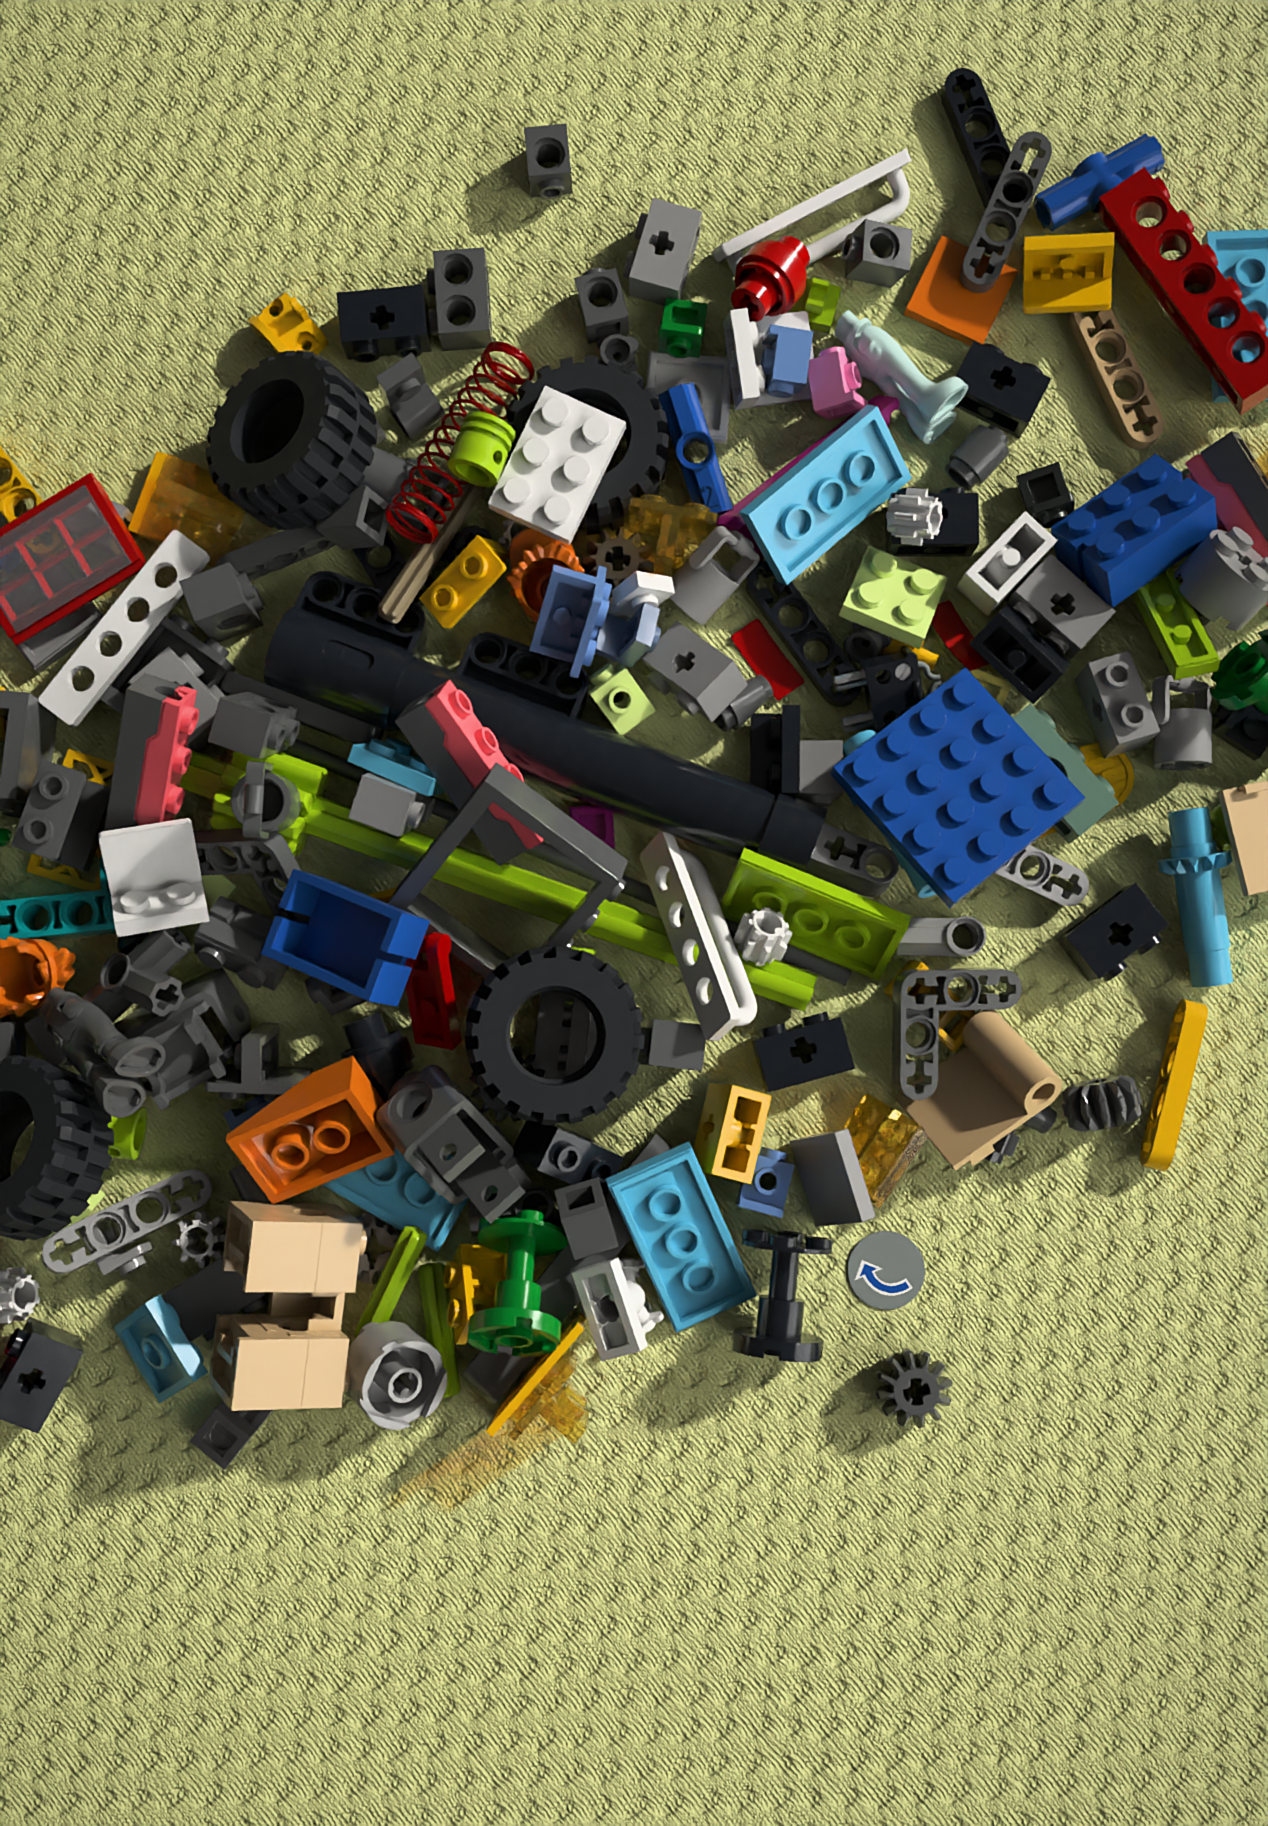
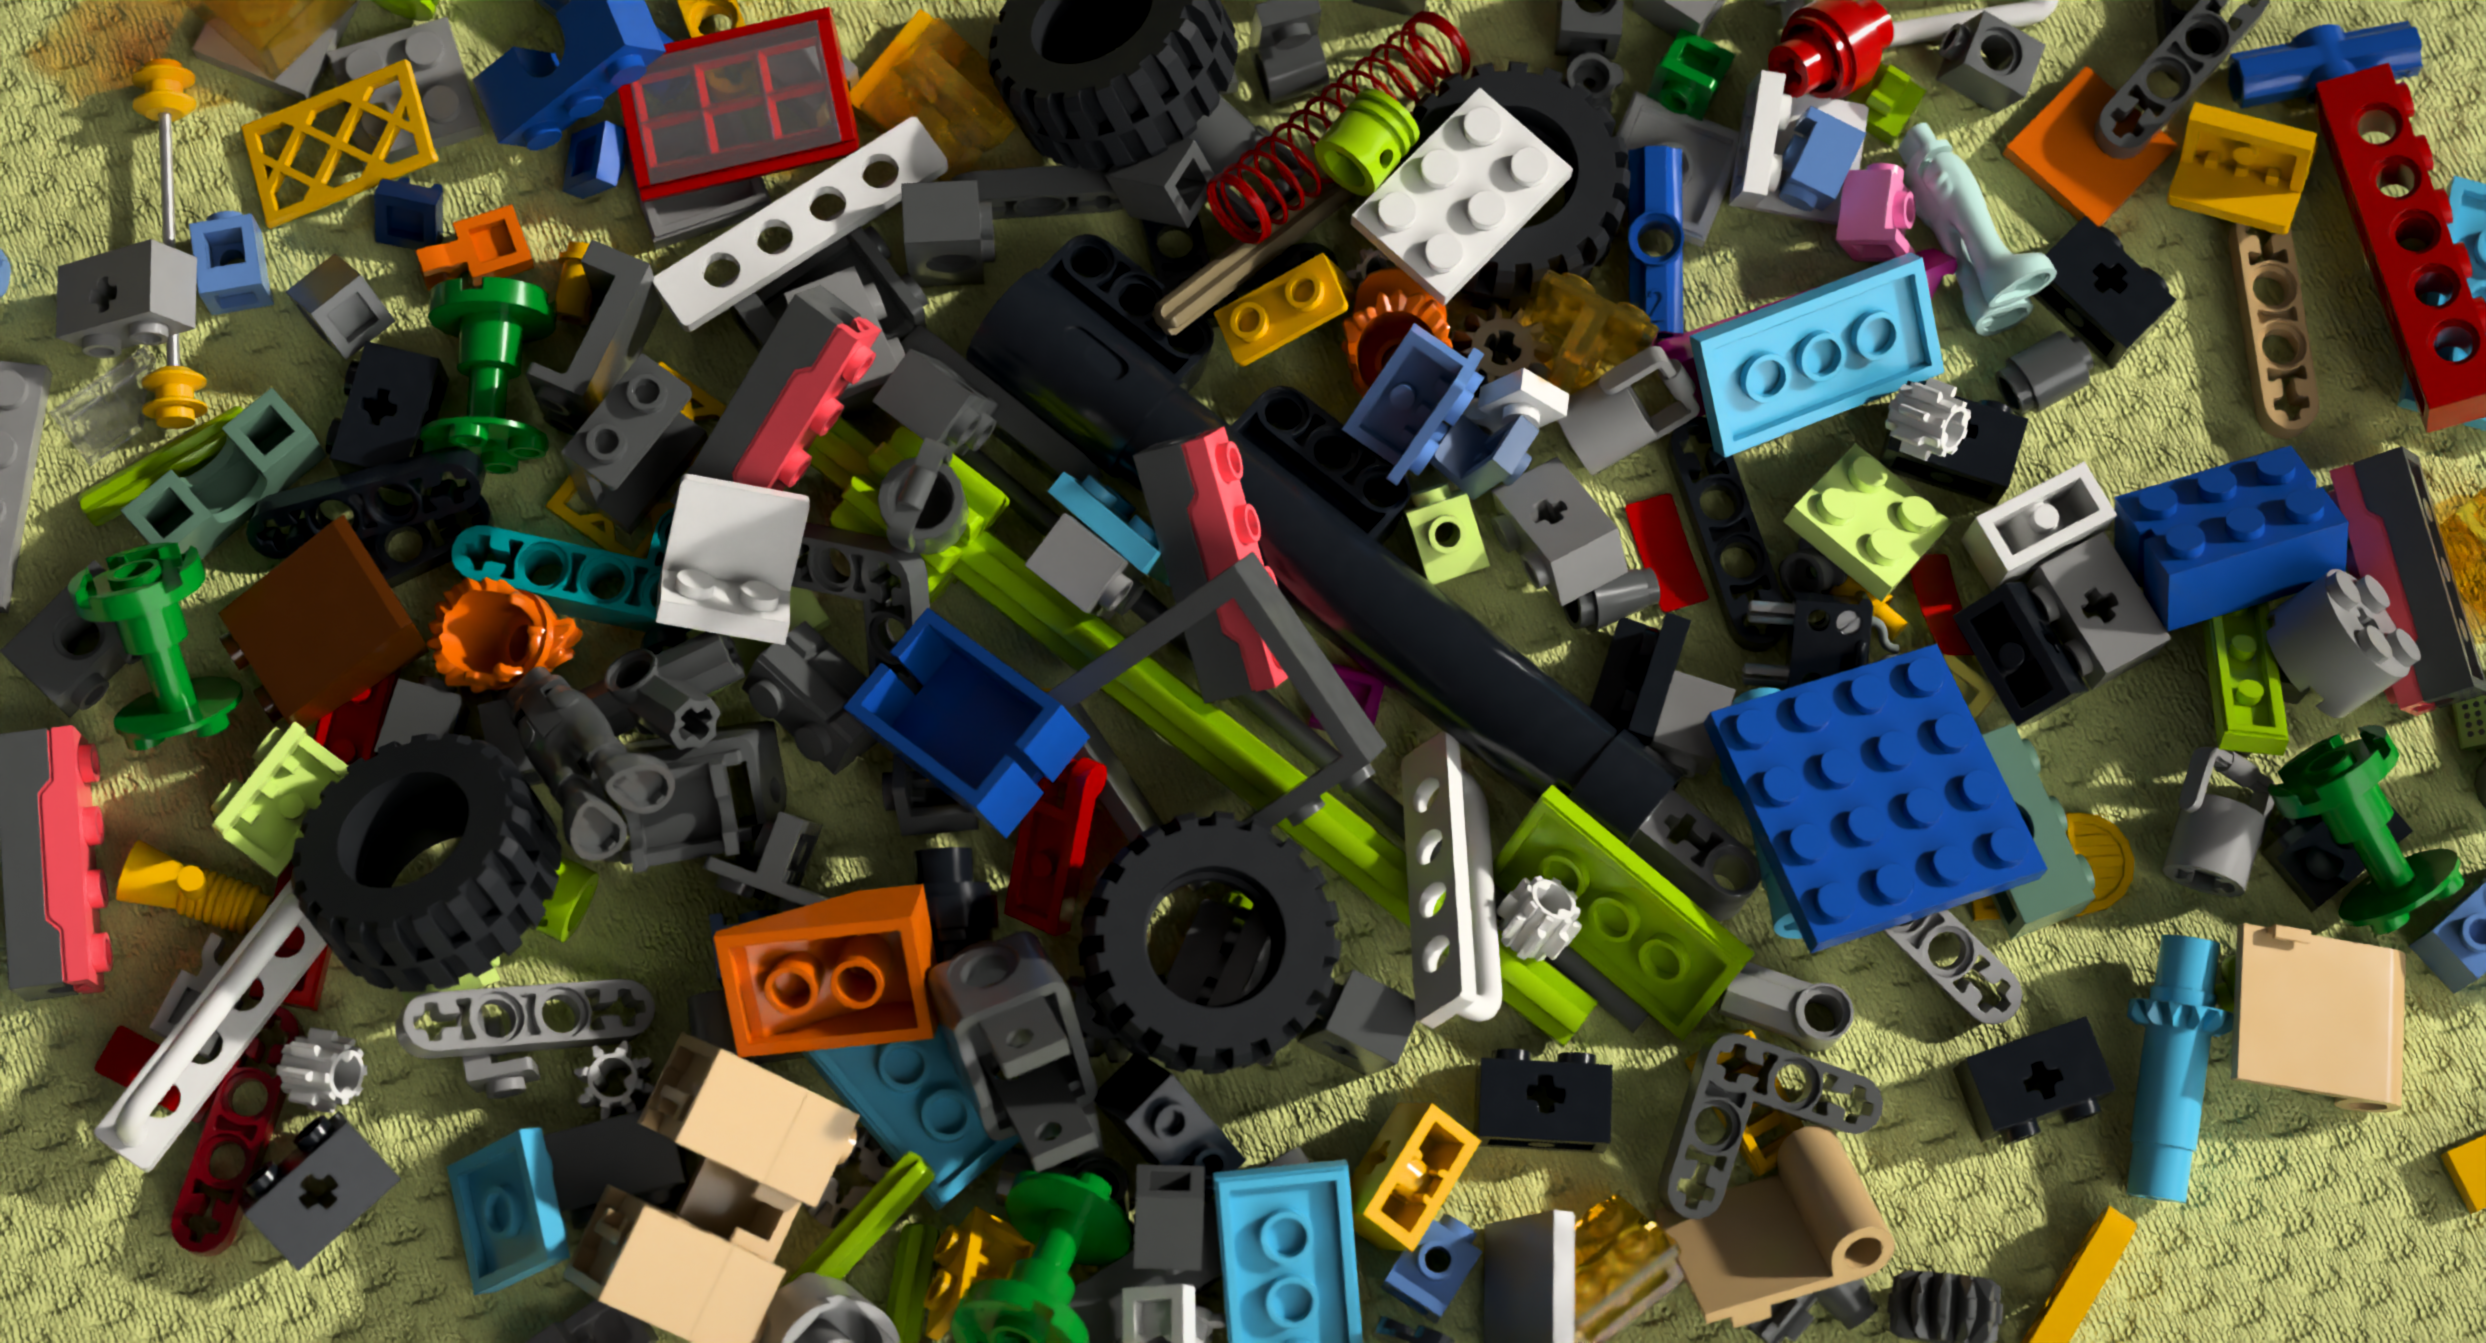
camera: 10 degrees right, 10 degrees down
(1046, 494) = (2123, 452): pearl dark grey bracket -> none
(1116, 704) = (2135, 767): light grey brick -> none

